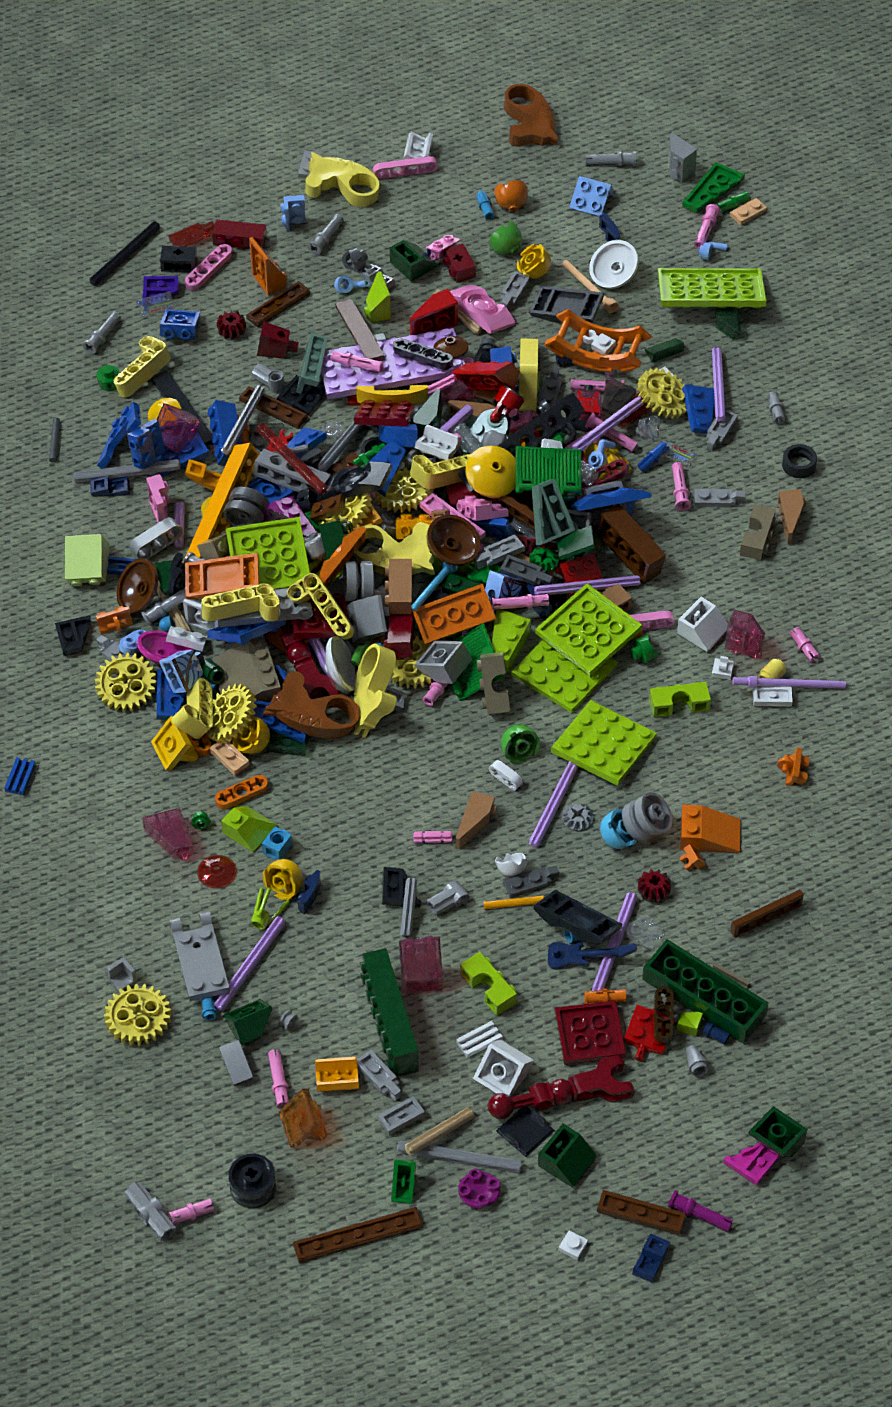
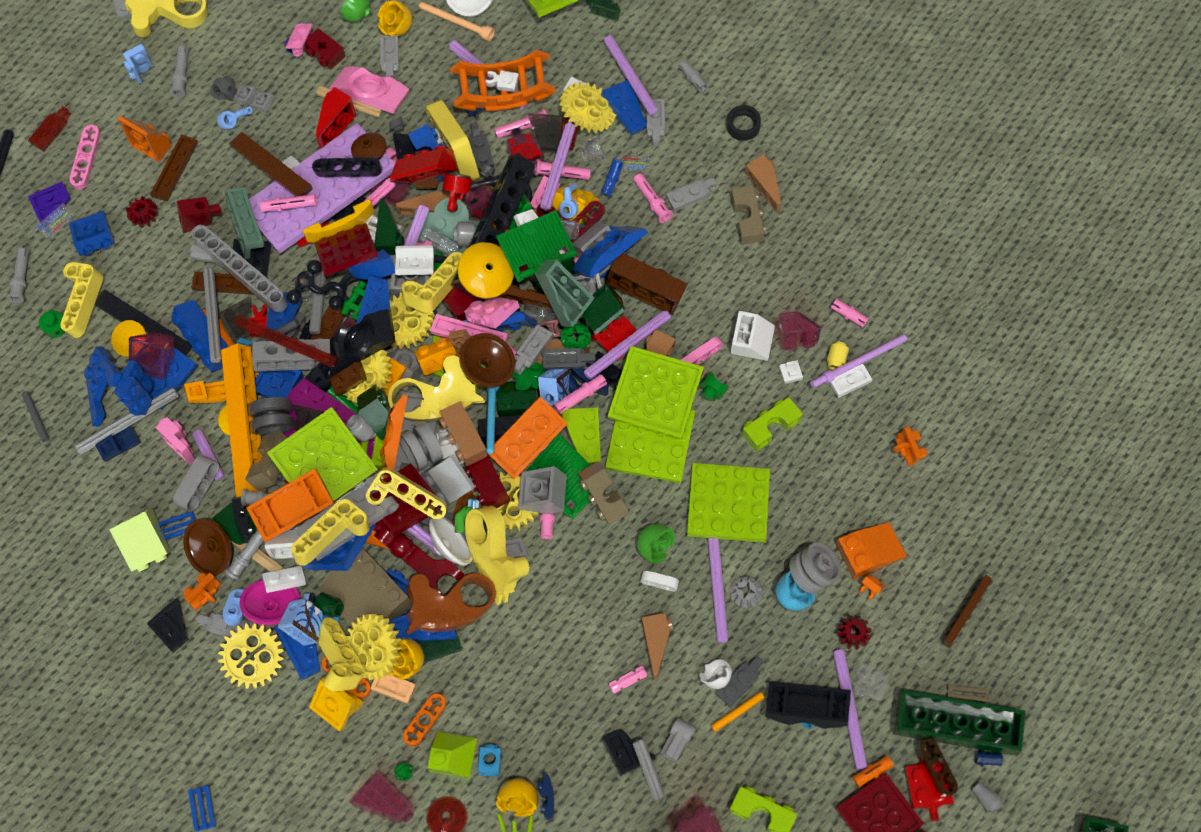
camera: 25 degrees left, 15 degrees up
(165, 623) = (255, 570): dark azure hinge -> none
(178, 259) = (51, 161): black brick -> none
(238, 233) = (97, 109): dark red brick -> none
(286, 392) = (243, 274): none -> light grey beam
(348, 416) = (314, 267): none -> black piece
(378, 301) = (271, 124): lime slope -> none
(411, 259) = (277, 65): dark green slope -> none
(555, 300) = (442, 52): black slope -> none
(563, 955) = (813, 745): dark blue piece -> none
(665, 349) = (560, 58): dark green slope -> none
(690, 1023) = (960, 759): lime slope -> none

